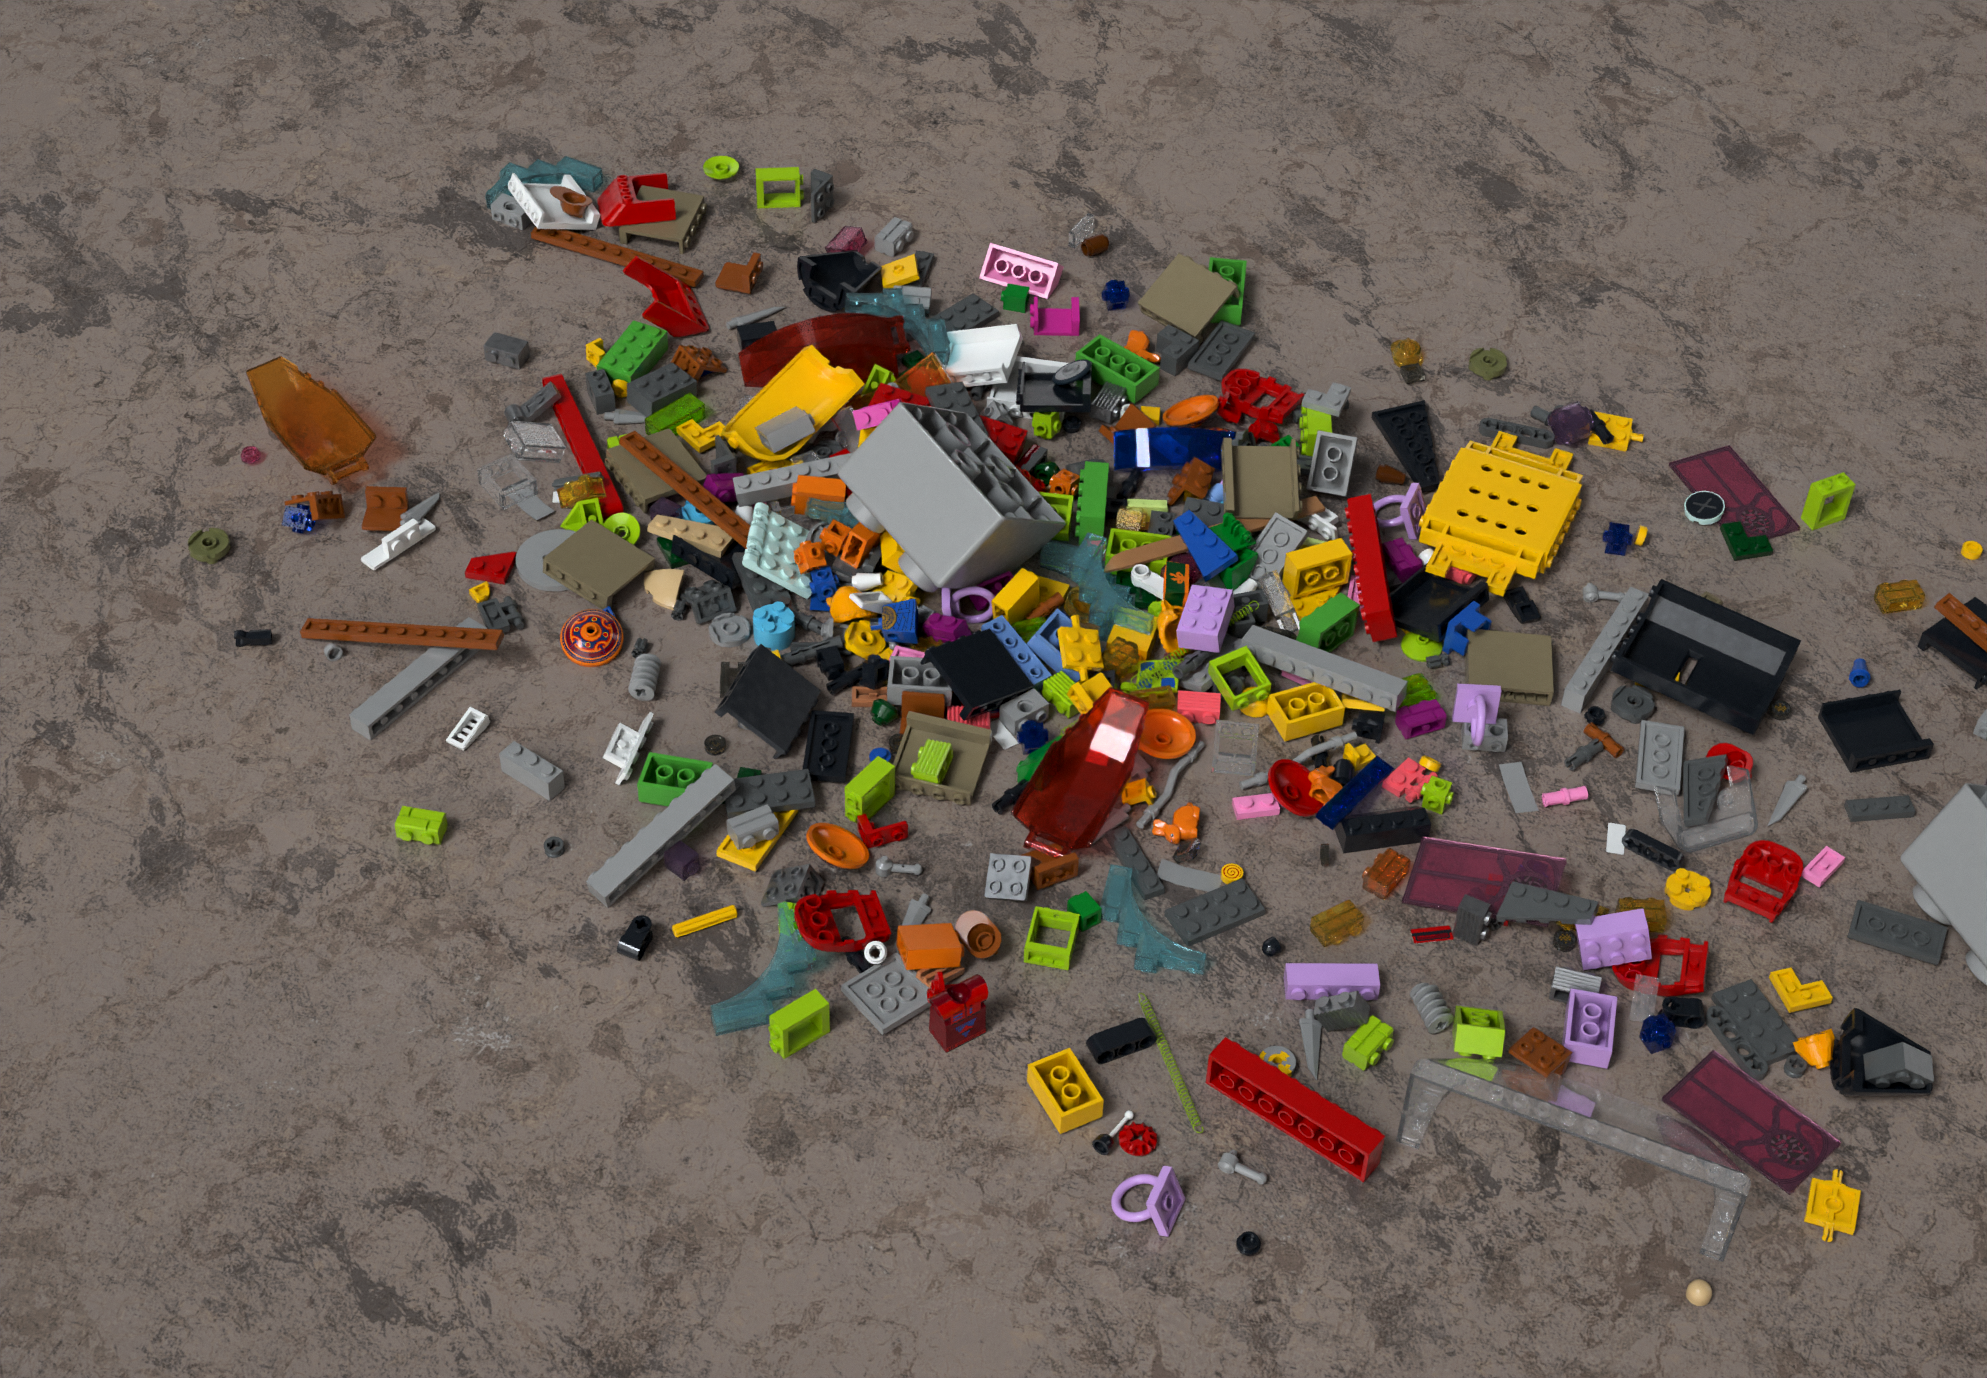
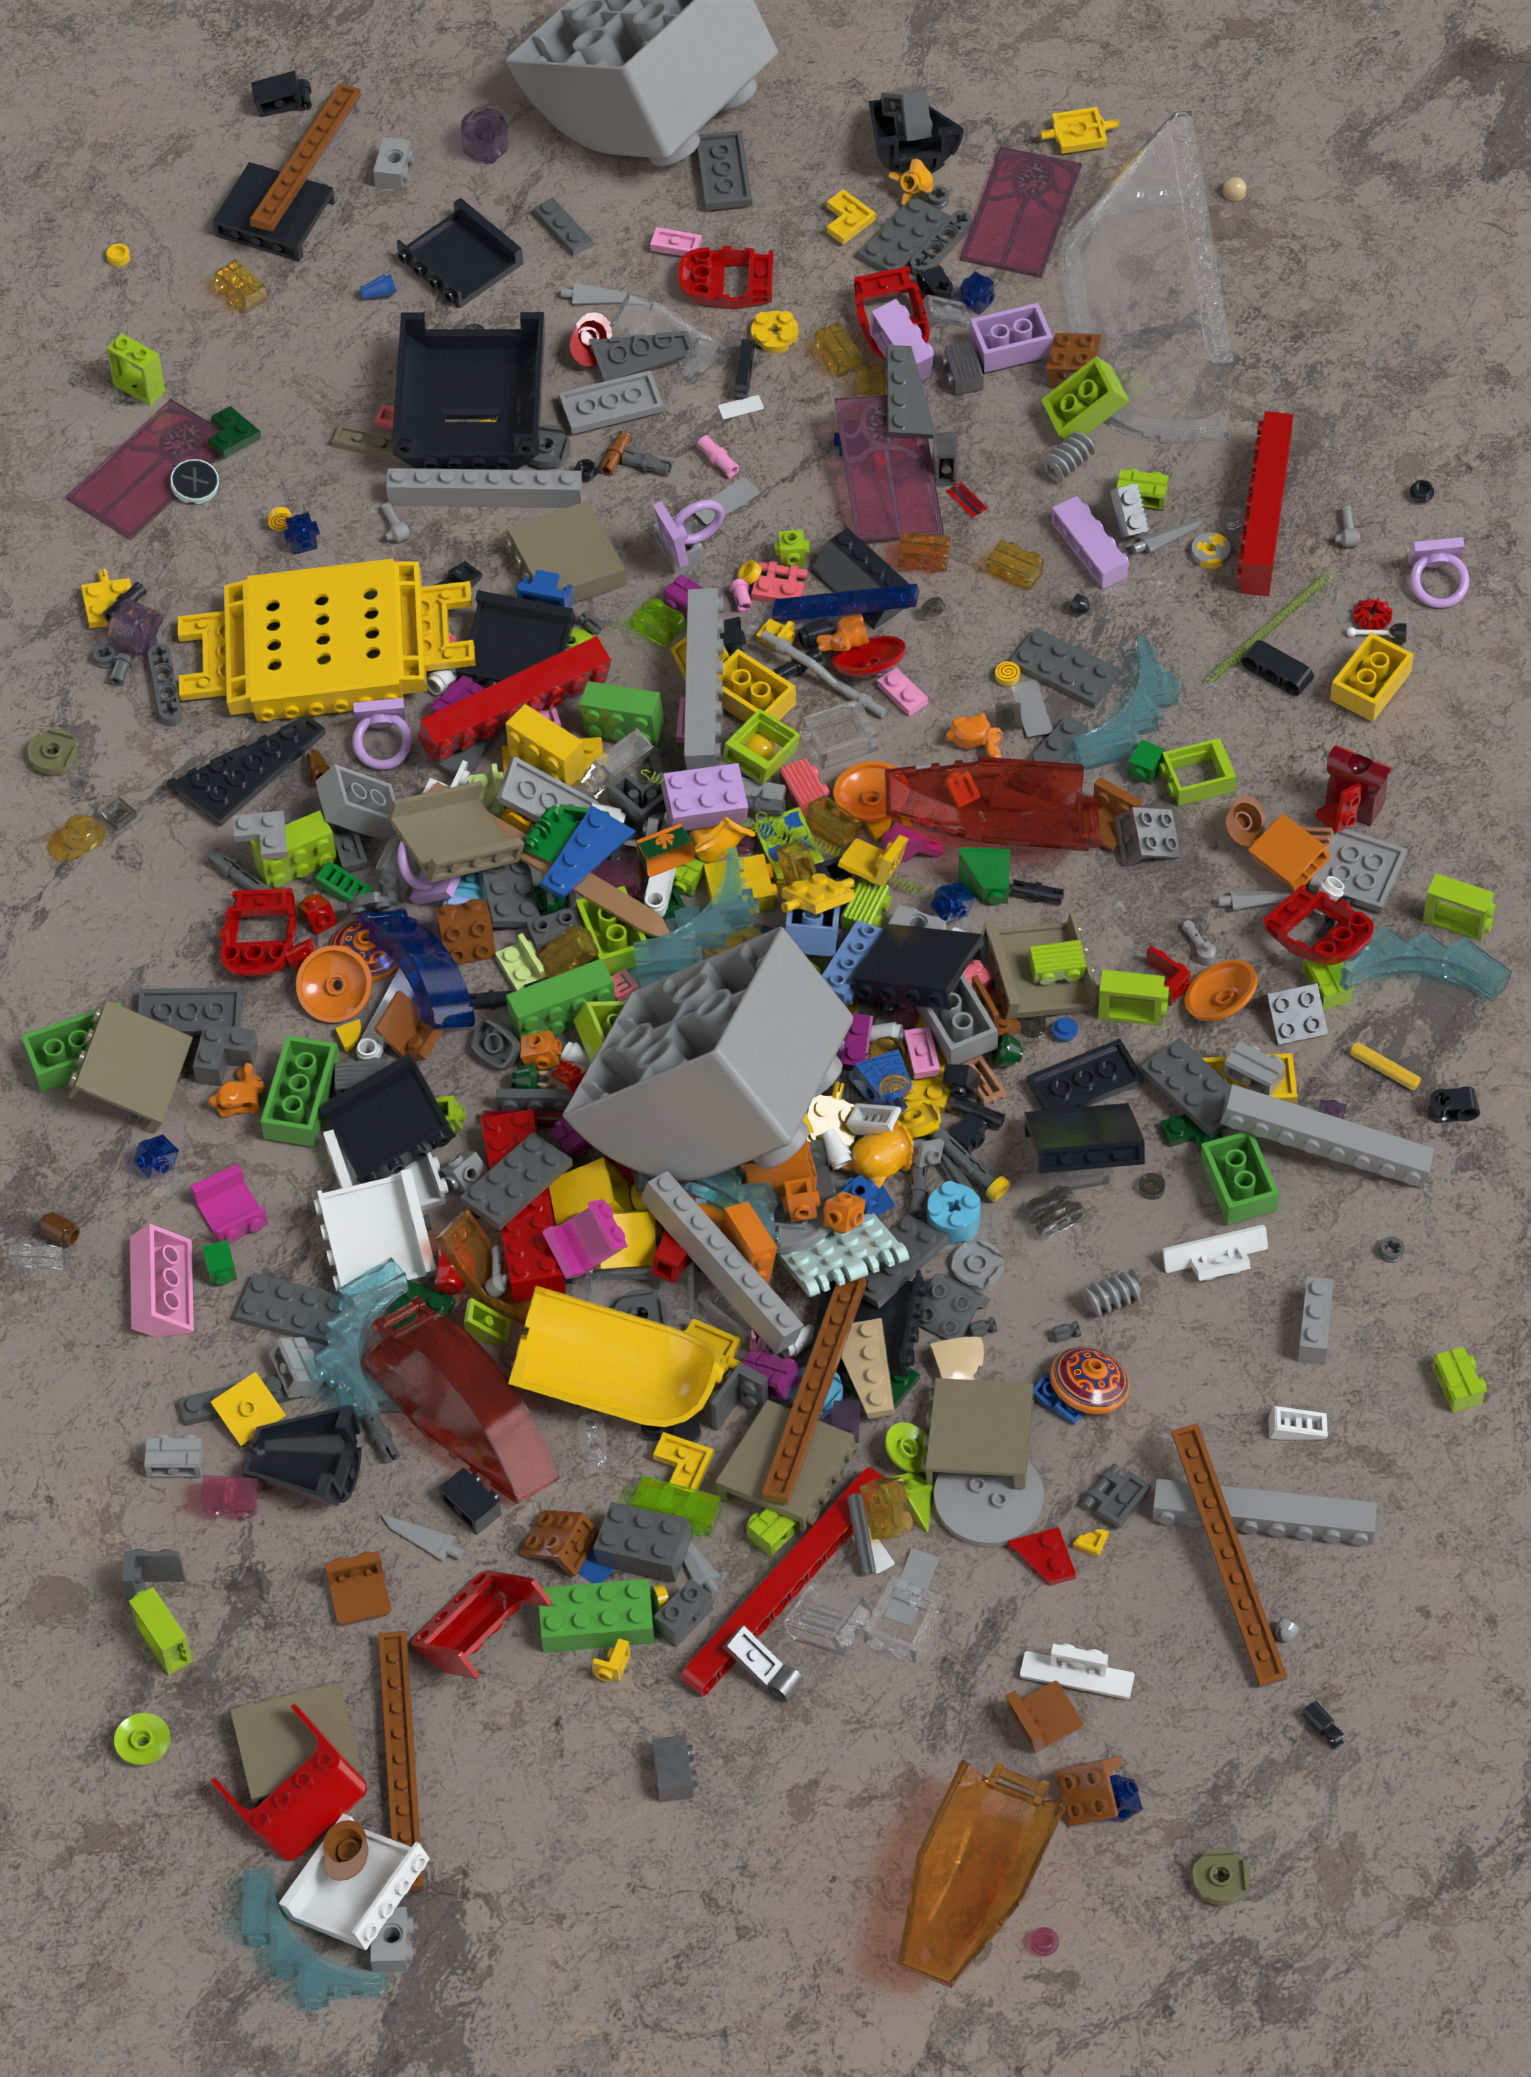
camera: 115 degrees left, 10 degrees up
(419, 510) = (1021, 1681): light grey bar -> none
(785, 429) = (651, 1344): light grey brick -> none
(1072, 372) = (369, 1115): wheel -> none
(1410, 751) = (739, 589): none -> bright pink pin

